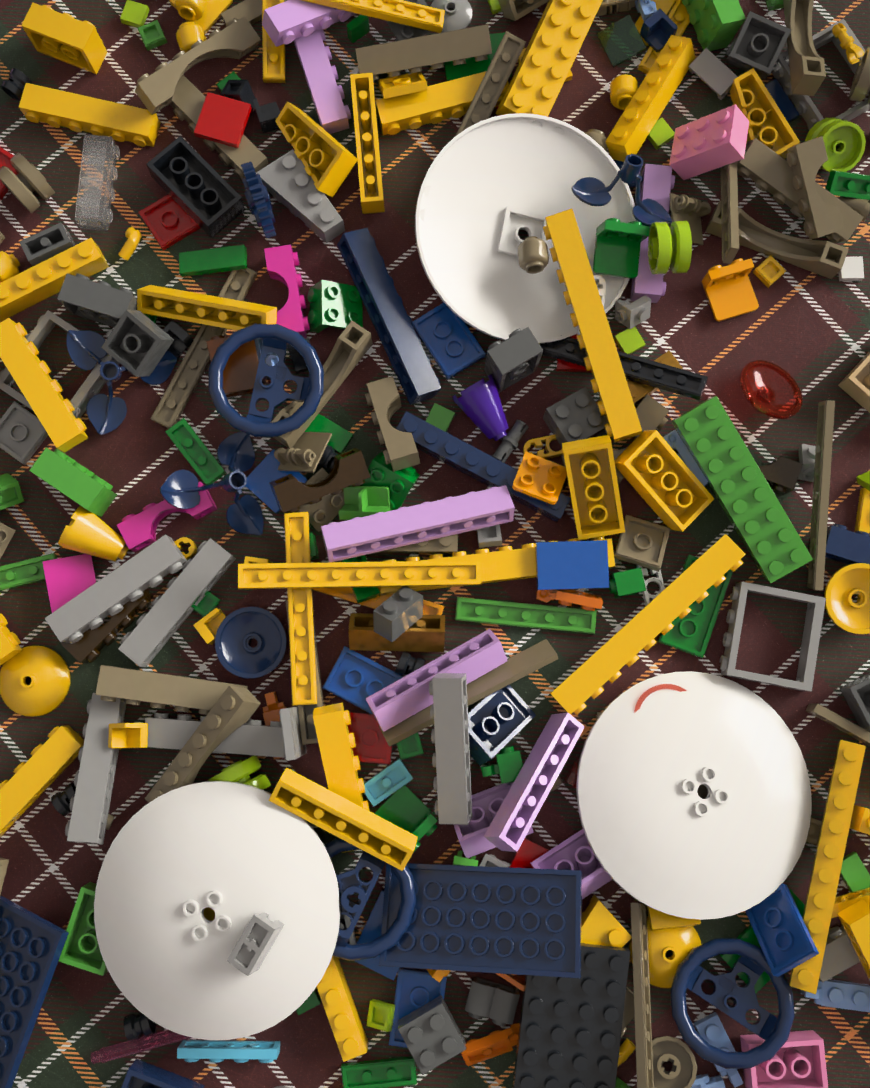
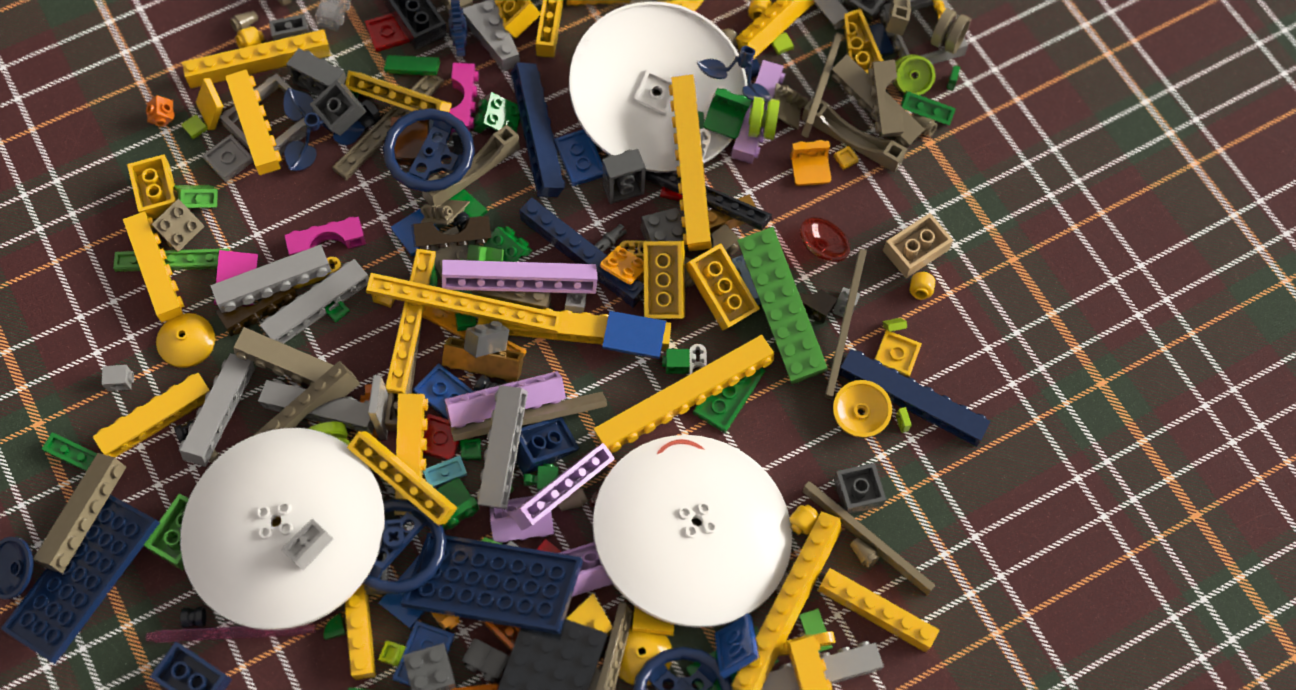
camera: 10 degrees right, 15 degrees down
(74, 481) = (261, 197): bright green brick -> none
(92, 537) = (262, 239): yellow cone -> none
(128, 735) = (249, 388): yellow panel -> none
(134, 237) = (355, 38): yellow arm -> none
(195, 452) = (360, 198): green plate -> none
(209, 625) = (339, 326): yellow panel -> none
(217, 1051) = (267, 655): medium azure plate -> none
(234, 639) = (360, 332): dark blue dish -> none
(238, 453) = (392, 207): dark blue plant -> none
(399, 445) = (519, 218): dark tan arch -> none
(440, 417) = (560, 210): bright green tile -> none
(484, 408) = (594, 207): dark purple cone -> none
(525, 615) = (590, 371): bright green tile -> none
(533, 255) = (656, 103): dark tan head -> none
(568, 596) = (627, 362): orange hinge -> none
(629, 340) = (723, 184): lime tile -> none
(633, 313) = (730, 164): light grey bracket -> none
(642, 543) = (696, 334): dark tan tile -> none
(709, 142) = (813, 53): bright pink brick -> none
(809, 644) = (774, 457): light grey window -> none
(819, 750) = (803, 519): none -> yellow head
(852, 269) = (911, 168): white tile -> none

